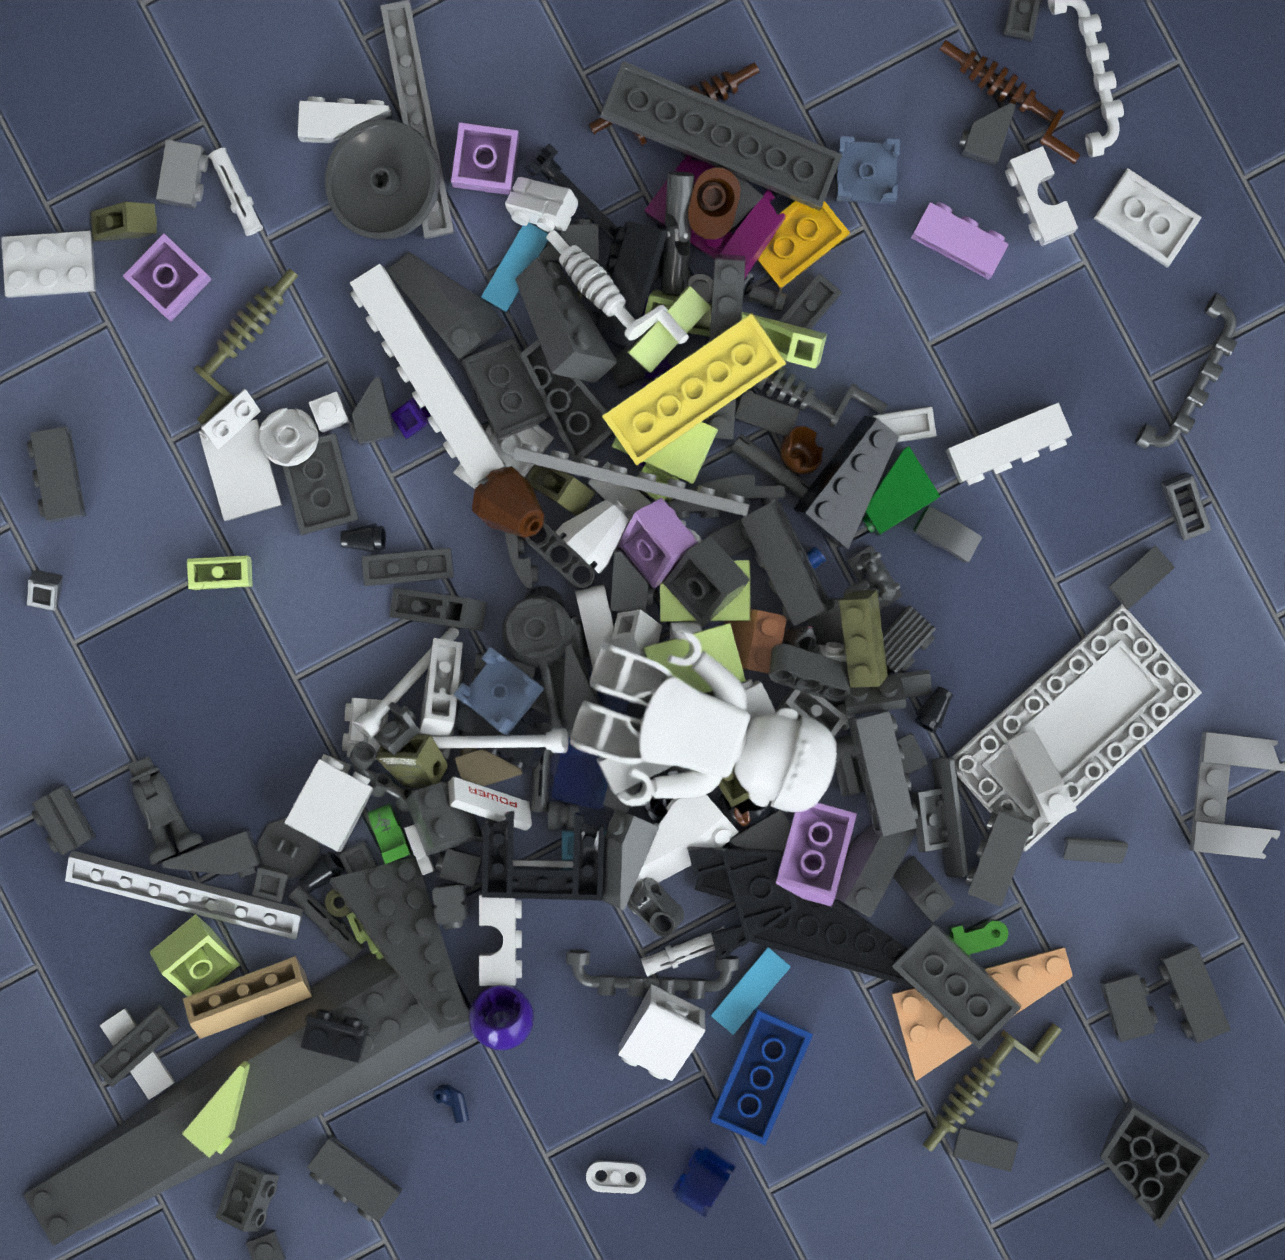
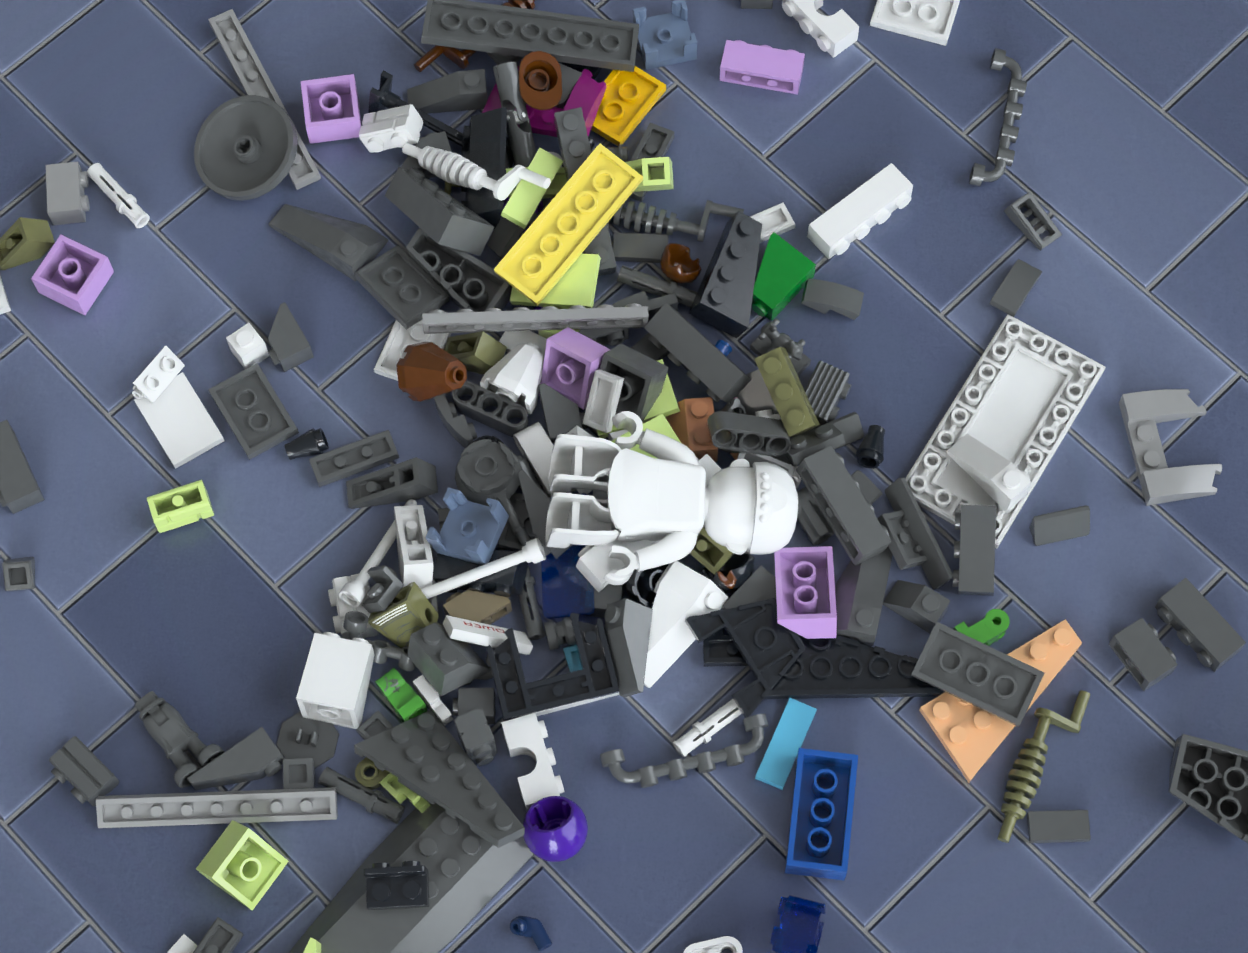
camera: 15 degrees left, 20 degrees down
(226, 348) = (151, 303): olive piece -> none
(247, 997) = (302, 883): tan brick -> none
(288, 436) = (215, 376): white tile -> none
(321, 871) = (343, 750): black cone -> none
(330, 121) = (183, 118): white slope -> none
(411, 418) = (324, 334): dark purple slope -> none
(427, 374) = (326, 290): white brick -> none
(523, 251) = (377, 206): medium azure tile -> none
(615, 173) = (451, 93): none -> dark grey slope
(655, 906) = (667, 686): dark grey piece -> none
(662, 1033) = (714, 801): white slope -> none
(674, 593) = (603, 400): none -> white tile

